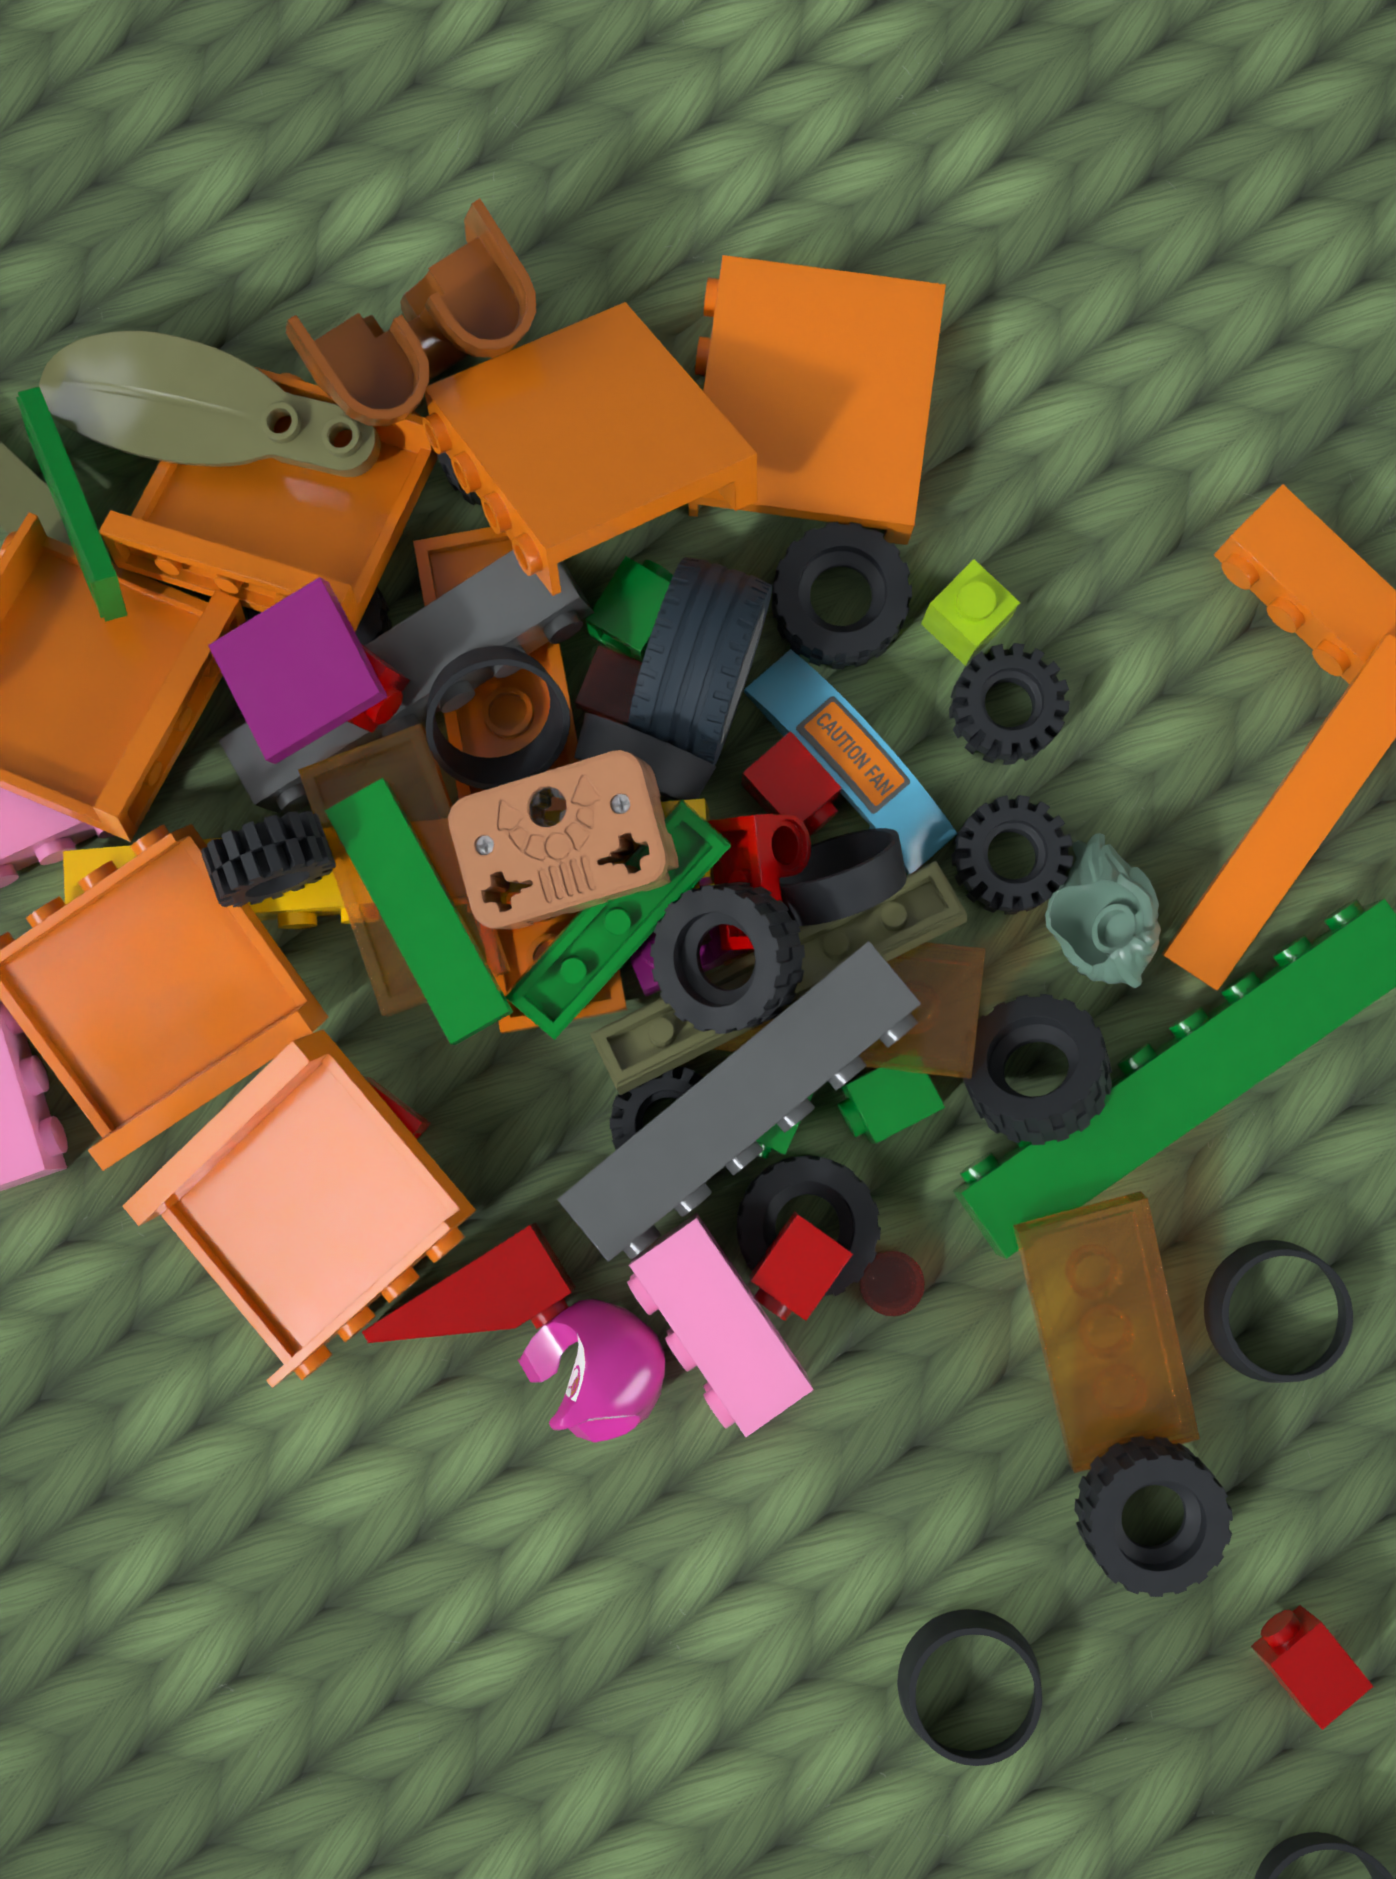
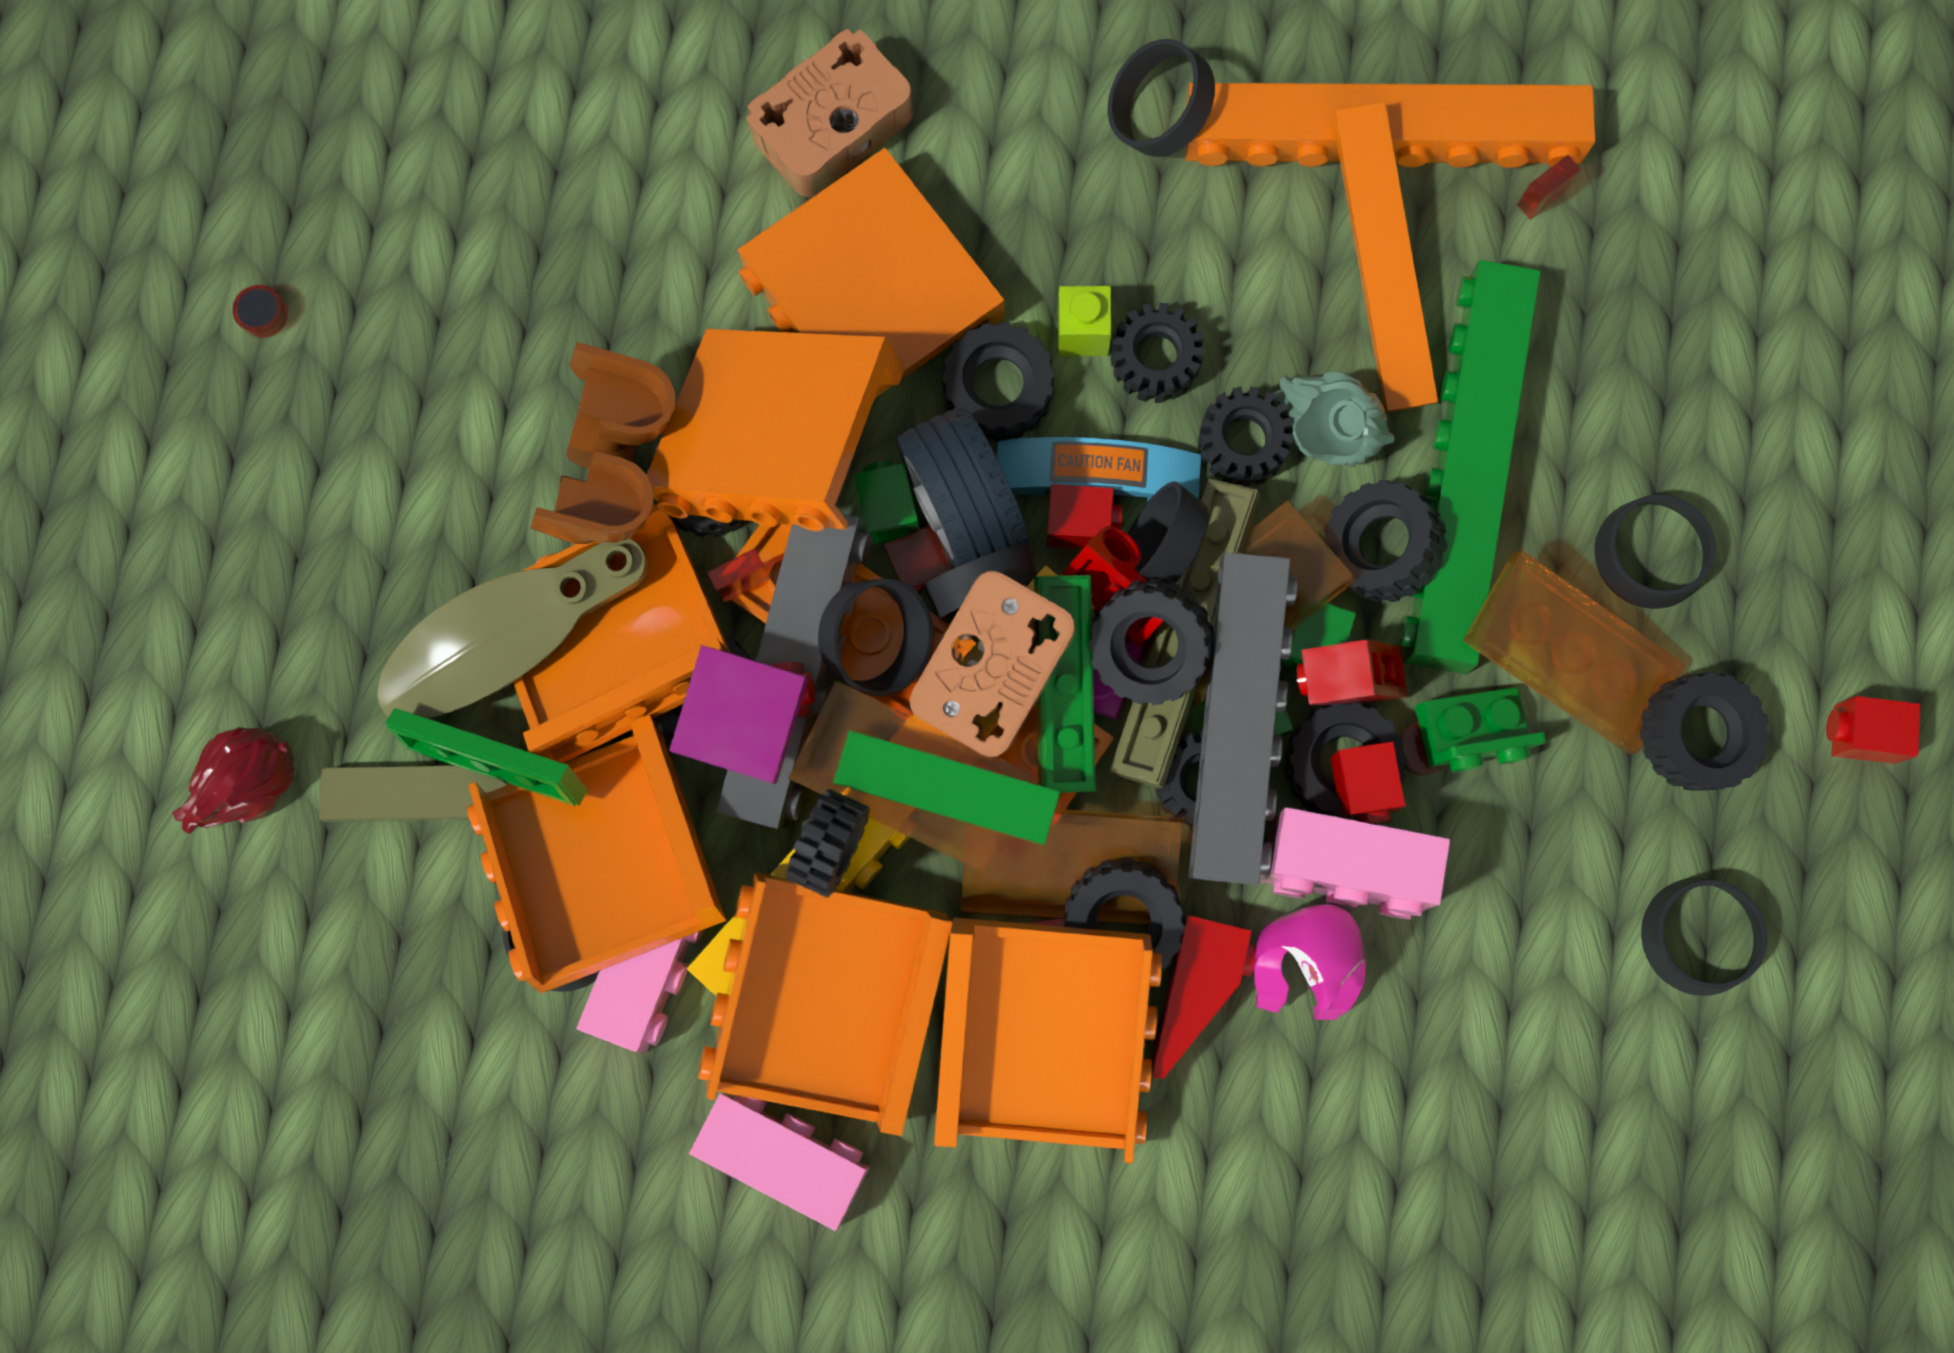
camera: 40 degrees left, 5 degrees down
(437, 550) = (739, 575): none -> clear red tile
(489, 1101) = (1039, 878): none -> clear orange tile
(515, 1149) = (1133, 880): none -> black tyre
(881, 1160) = (1352, 673): none -> slope
(936, 190) = (833, 90): none -> nougat axle
(952, 1310) = (1474, 728): none -> green bracket
(1227, 433) = (1130, 77): none -> black tyre

